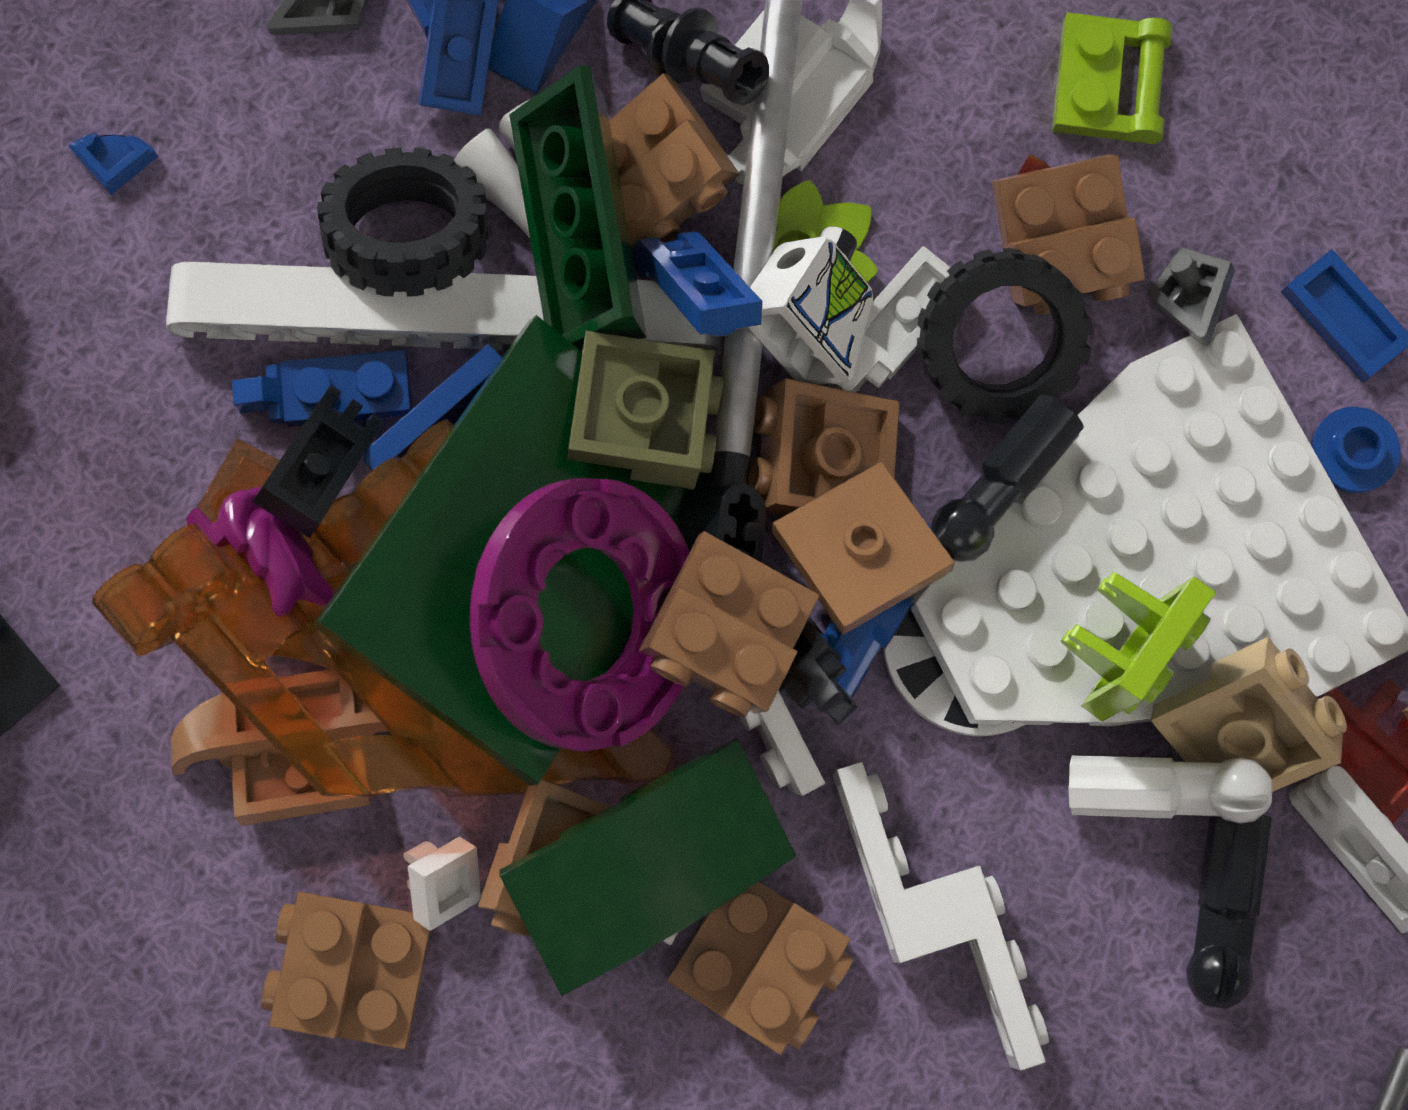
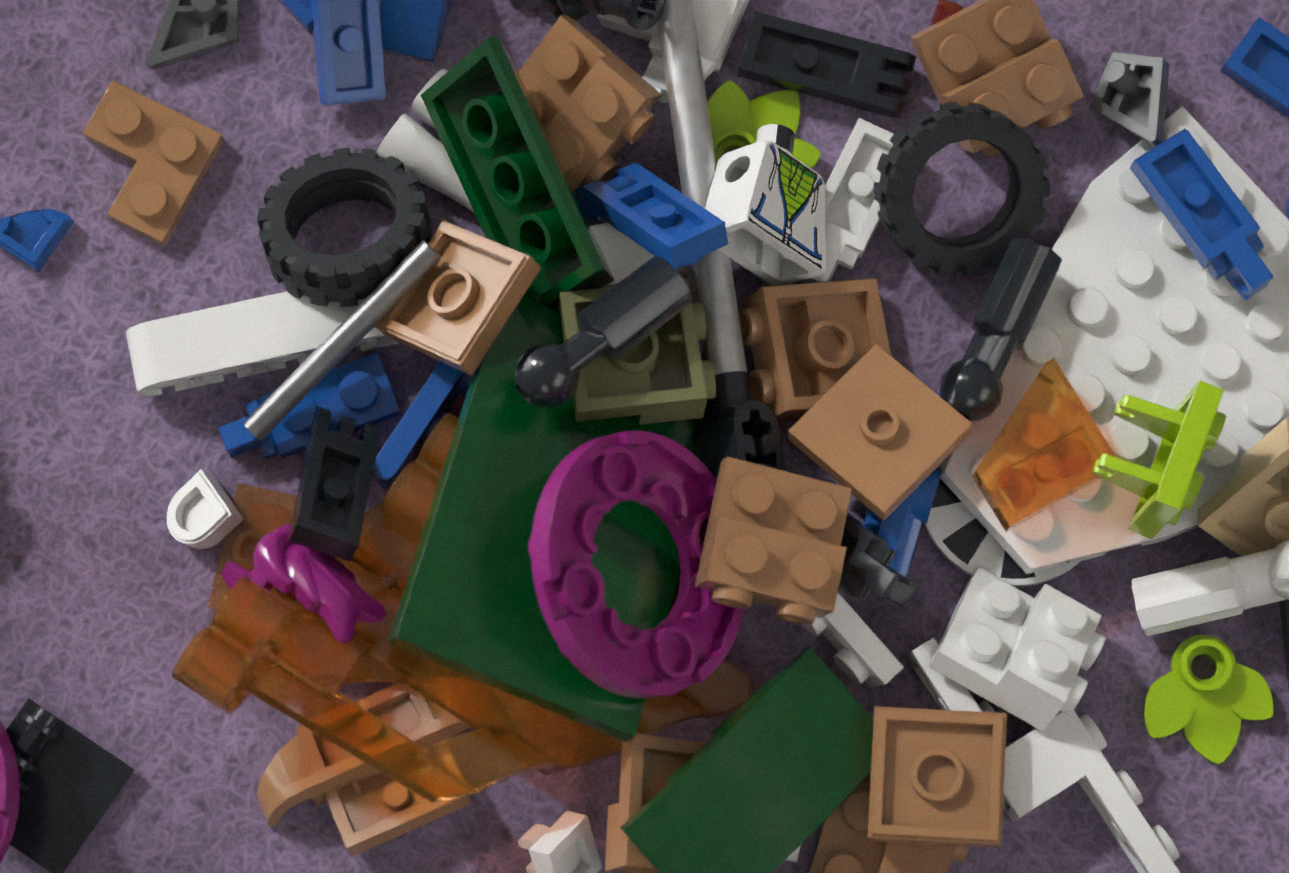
camera: 10 degrees left, 0 degrees up
(194, 457) = (201, 512): none -> white tile
(261, 119) = (168, 157): none -> medium nougat plate
(368, 325) = (342, 340): none -> flat silver bar
(488, 311) = (462, 299): none -> medium nougat plate
(620, 375) = (608, 328): none -> black piece
(828, 901) = (937, 777): none -> medium nougat plate
(904, 188) = (825, 64): none -> black hinge
(944, 795) = (1019, 648): none -> white plate
(1015, 607) = (1041, 451): none -> clear orange wing
(1112, 901) = (1209, 708): none -> lime plate
(1235, 418) = (1204, 212): none -> blue hinge

